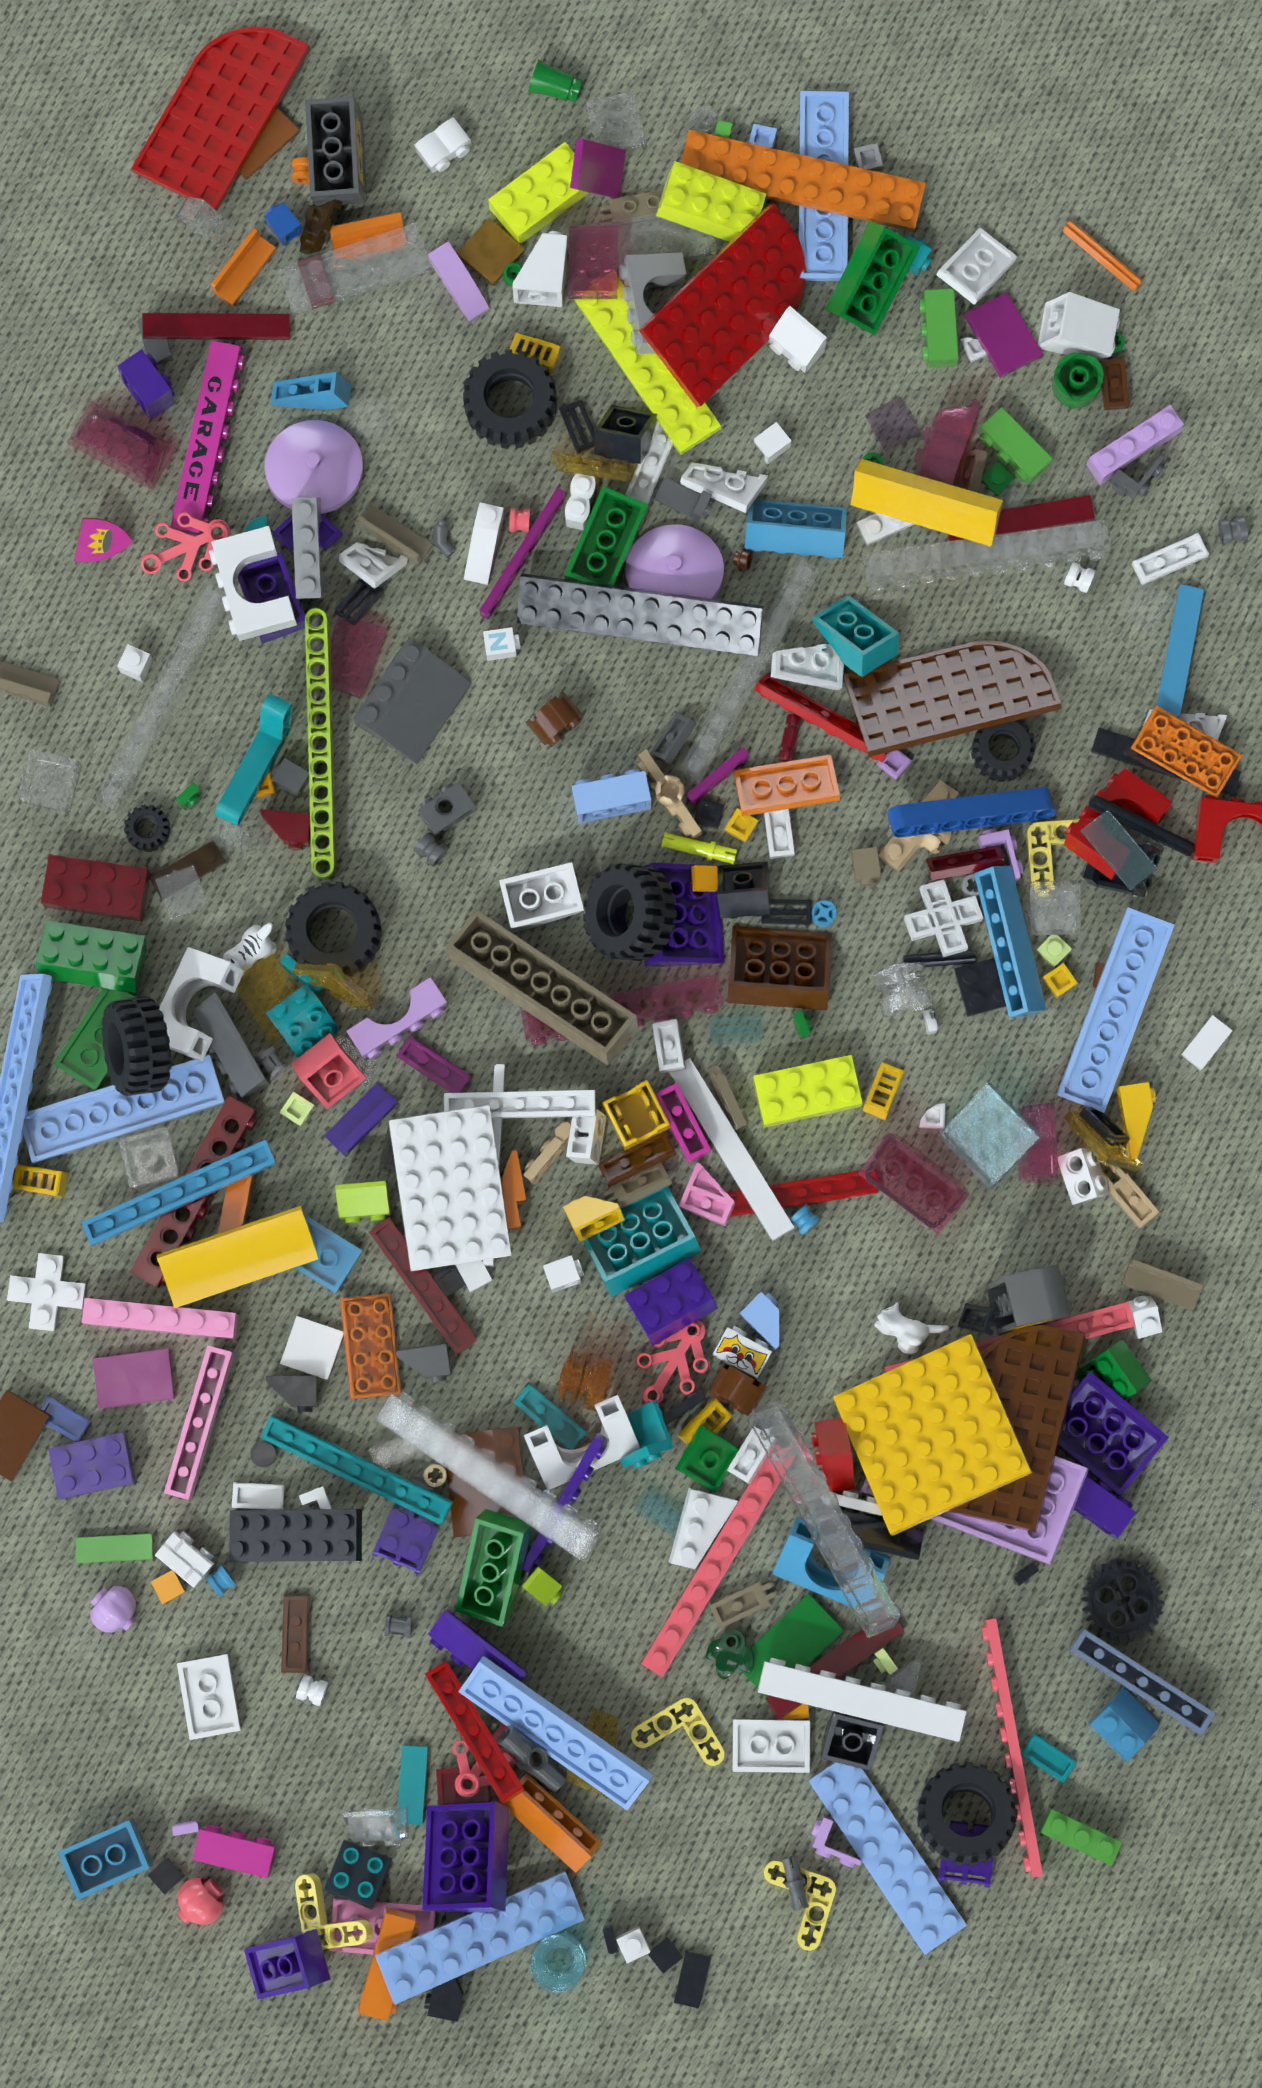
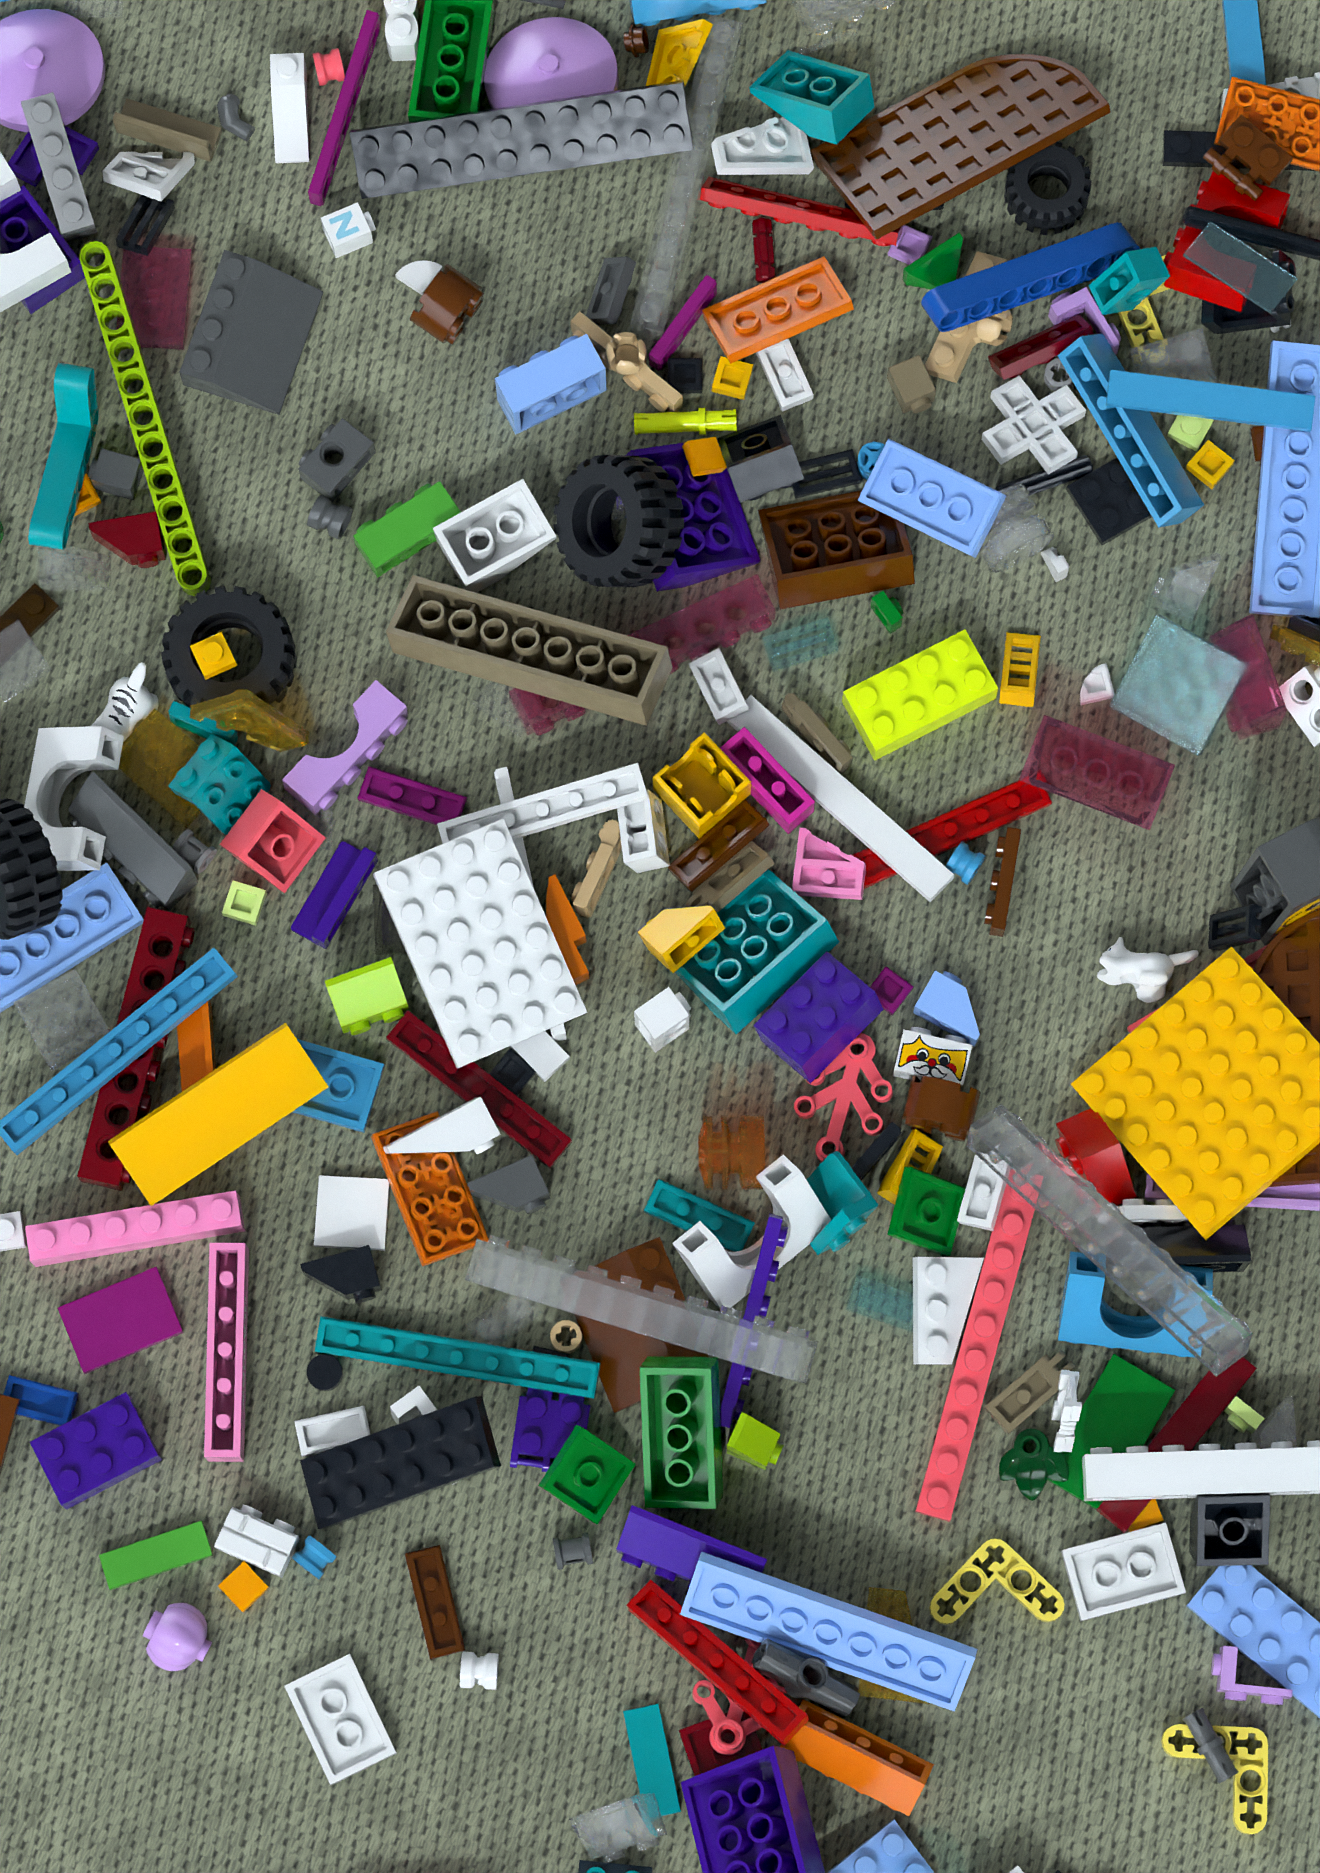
camera: 15 degrees left, 5 degrees down
(321, 932) = (213, 655): none -> yellow plate
(396, 1313) = (456, 1131): none -> white slope
(422, 1576) = (586, 1474): none -> green plate
(482, 872) = (404, 528): none -> bright green brick
(542, 690) = (419, 274): none -> white tile
(726, 1294) = (891, 990): none -> magenta tile
(763, 1626) = (1066, 1410): none -> white piece
(766, 580) = (677, 52): none -> yellow wing
(827, 1239) = (1002, 881): none -> reddish brown plate
(854, 955) = (932, 498): none -> light blue tile
(908, 785) = (936, 266): none -> green slope
(1016, 1065) = (1185, 587): none -> clear slope
(1039, 835) = (1129, 280): none -> teal brick
(1070, 939) = (1210, 400): none -> dark azure tile
(1155, 763) = (1253, 150): none -> reddish brown plate

